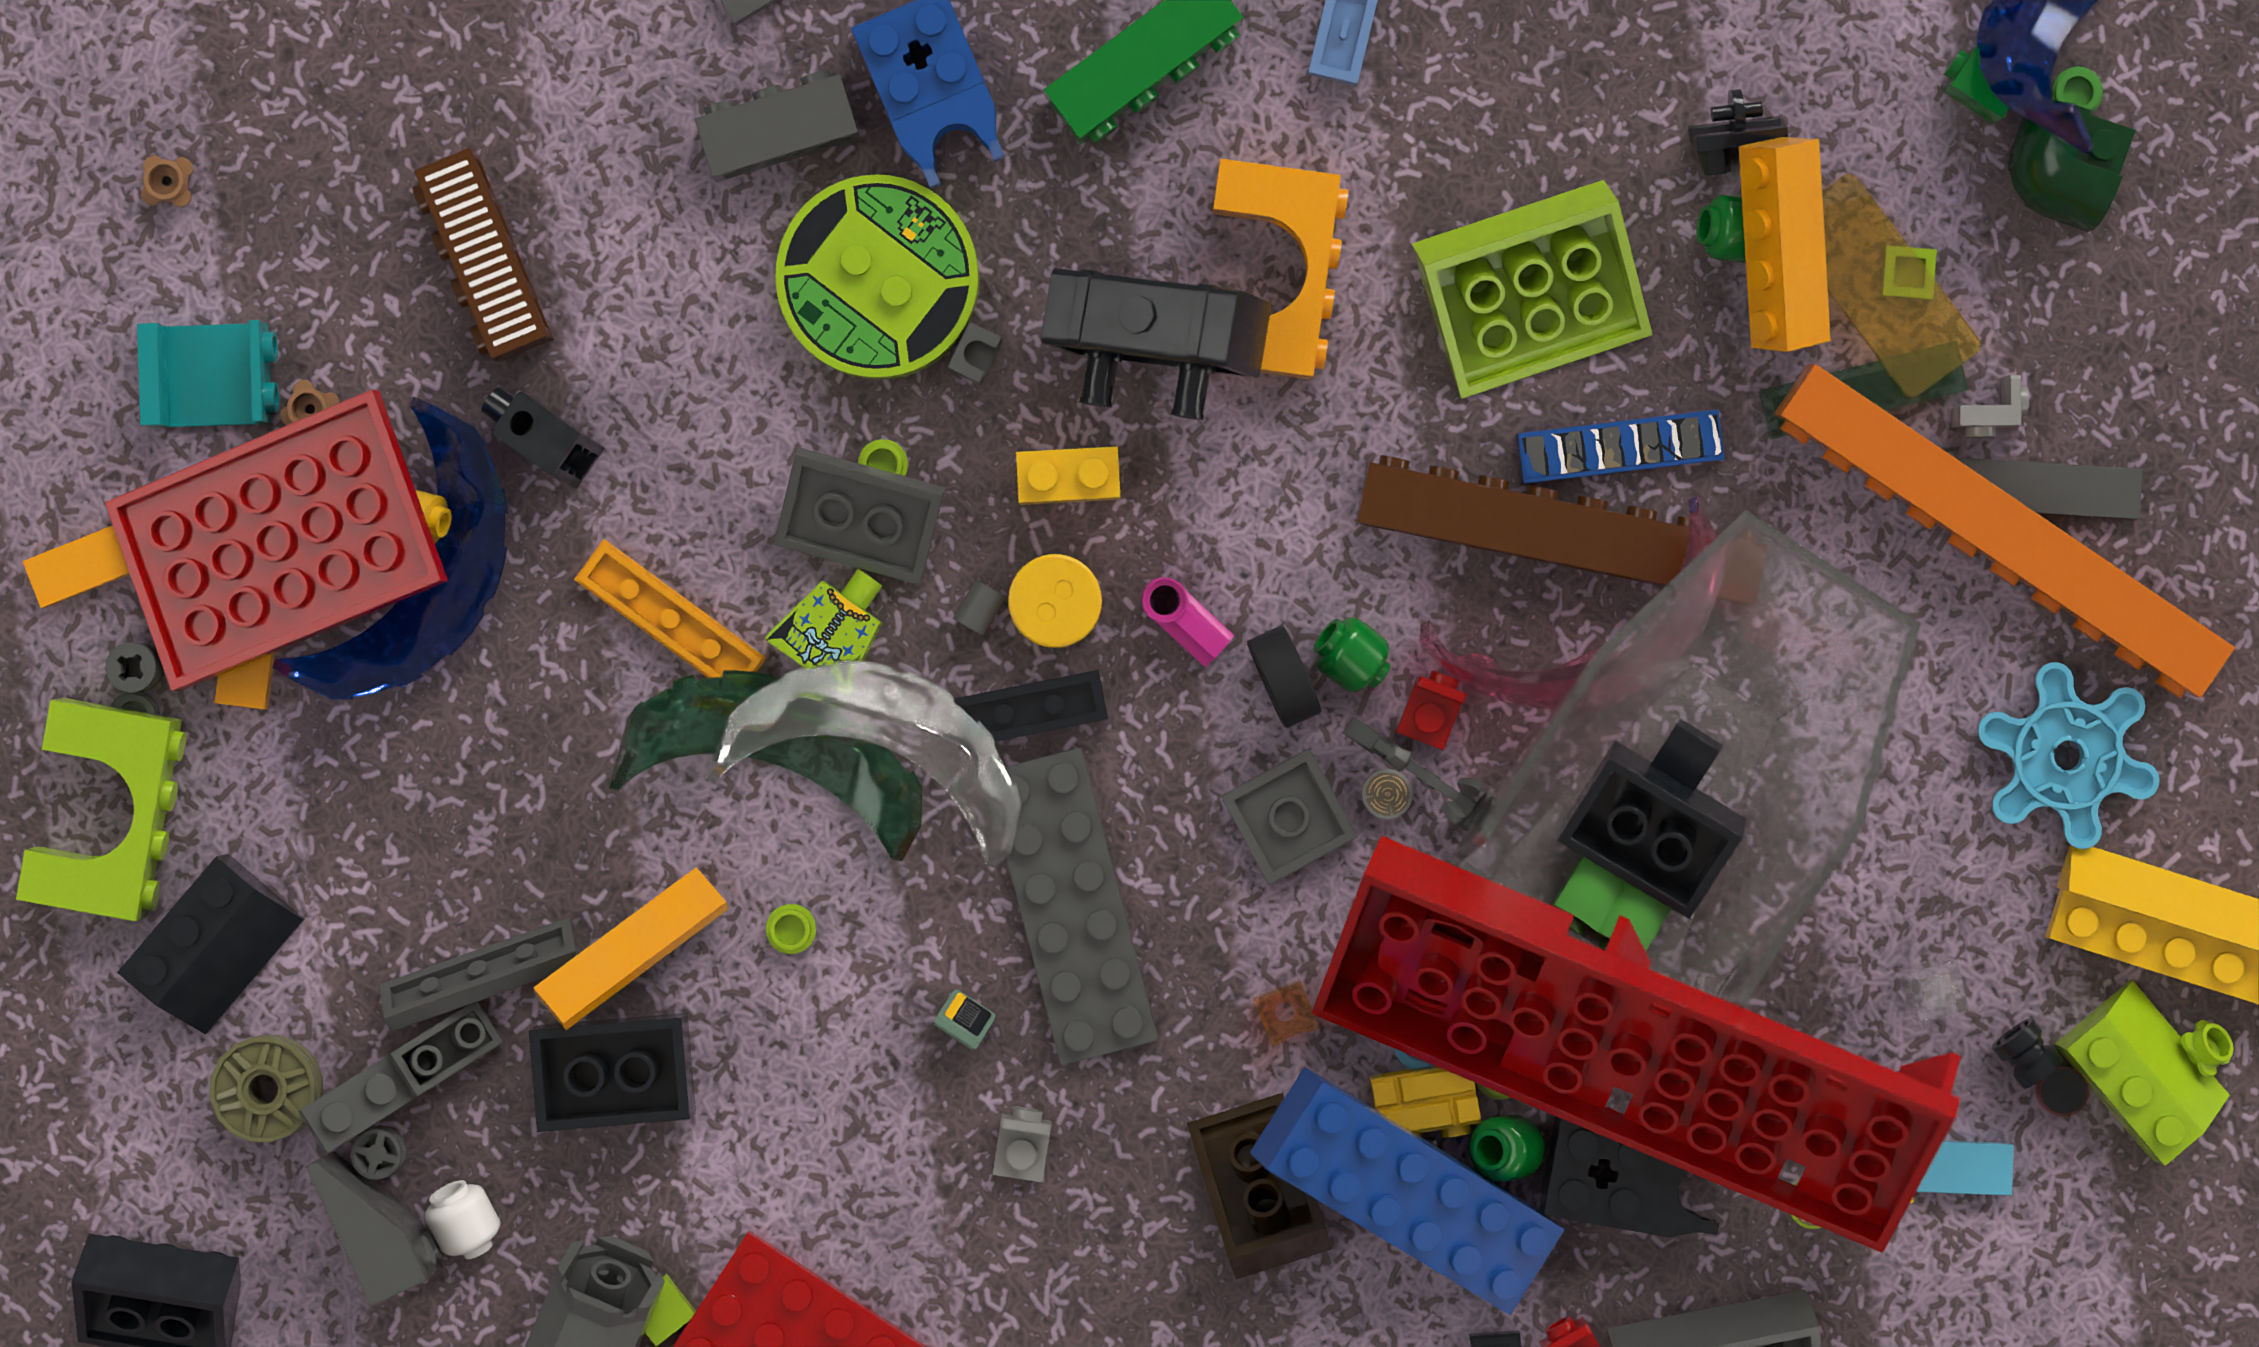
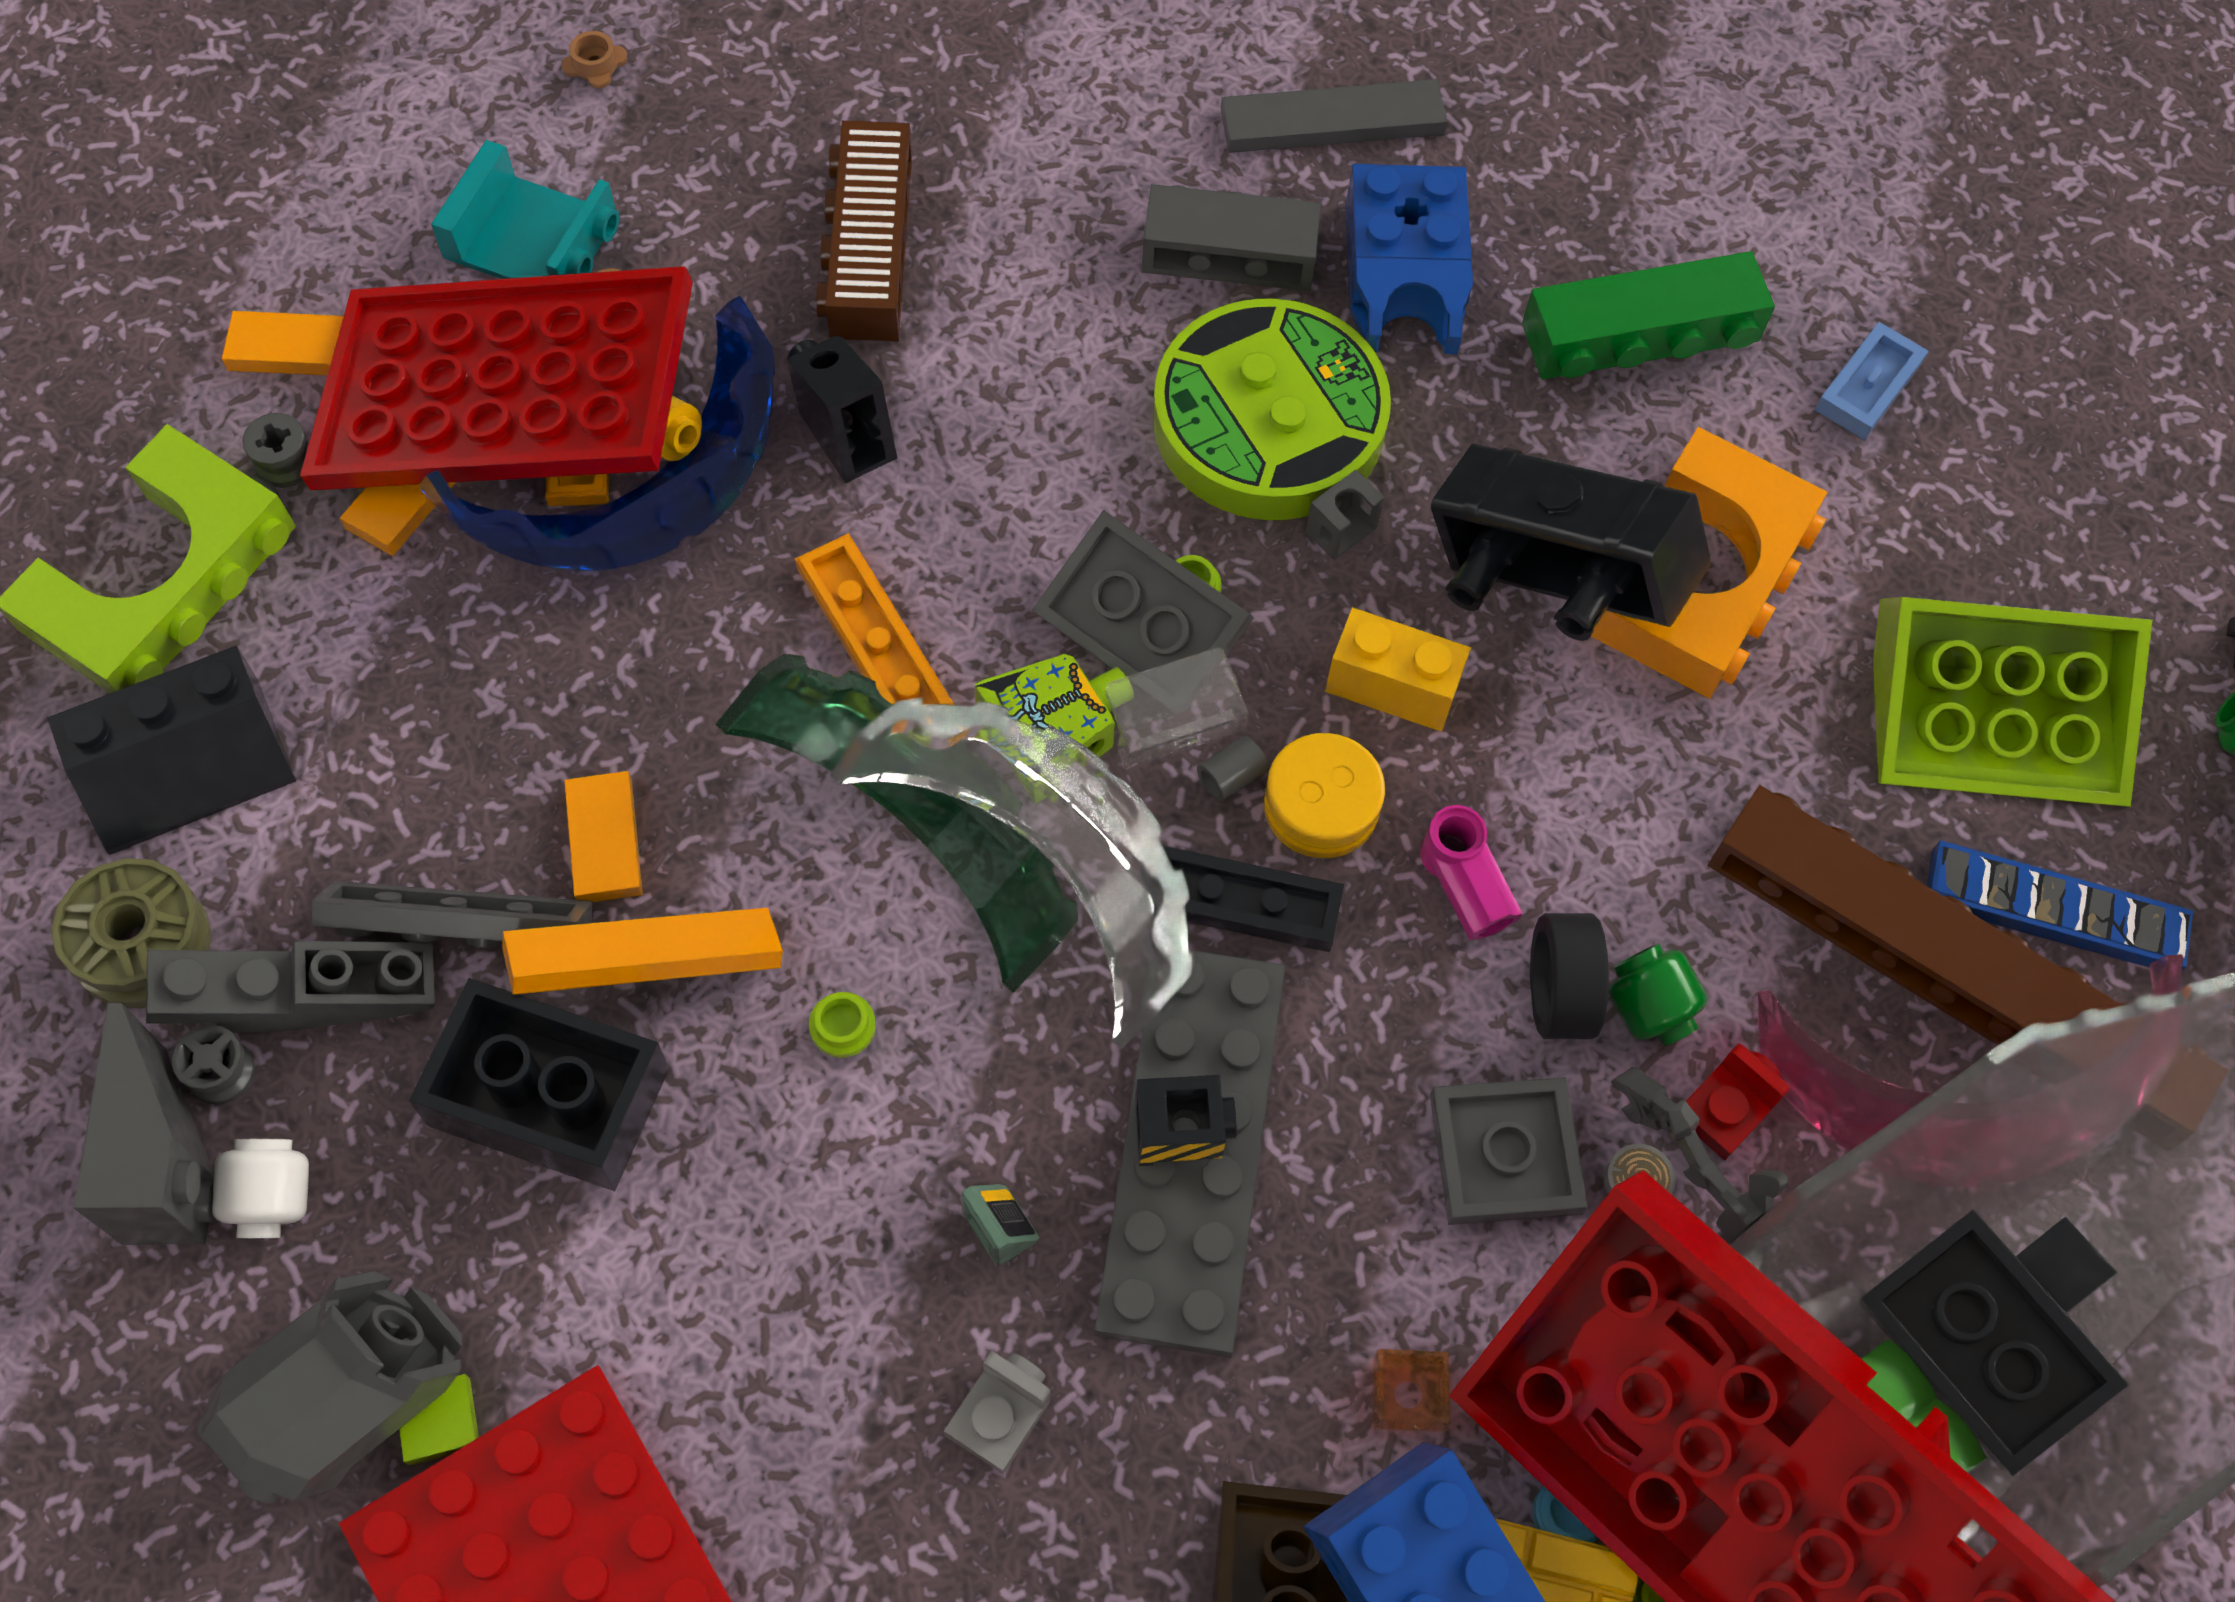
camera: 20 degrees right, 25 degrees down
(550, 865) = (603, 837): none -> light orange tile
(917, 585) = (1176, 707): none -> clear panel
(1049, 925) = (1164, 1101): none -> black brick

